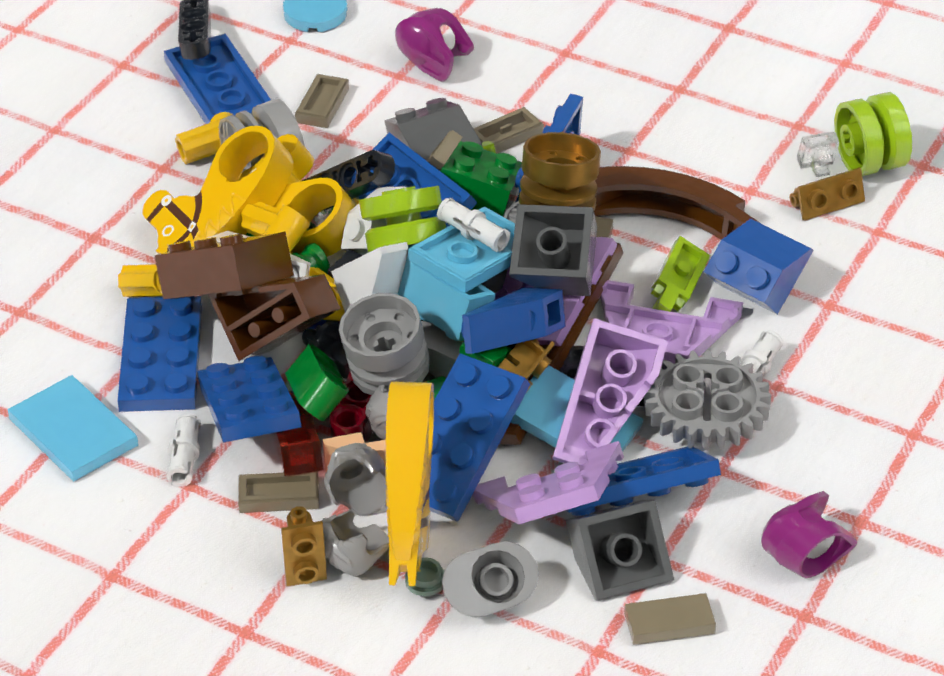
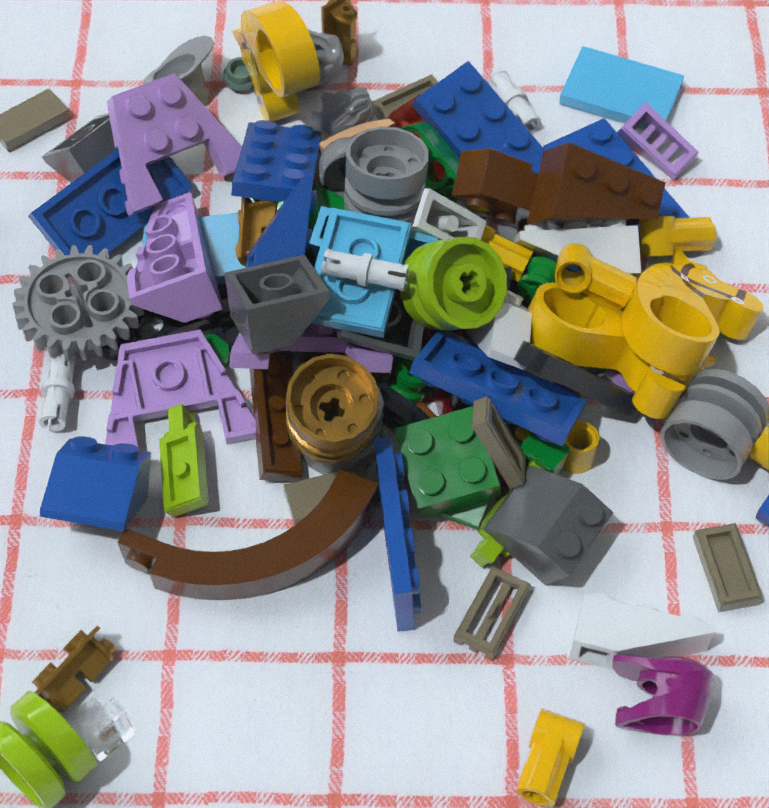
camera: 150 degrees right, 15 degrees up
(94, 365) = (666, 131): none -> lavender slope
(420, 77) = (641, 630): none -> white slope
(522, 54) = (552, 748): none -> yellow piece

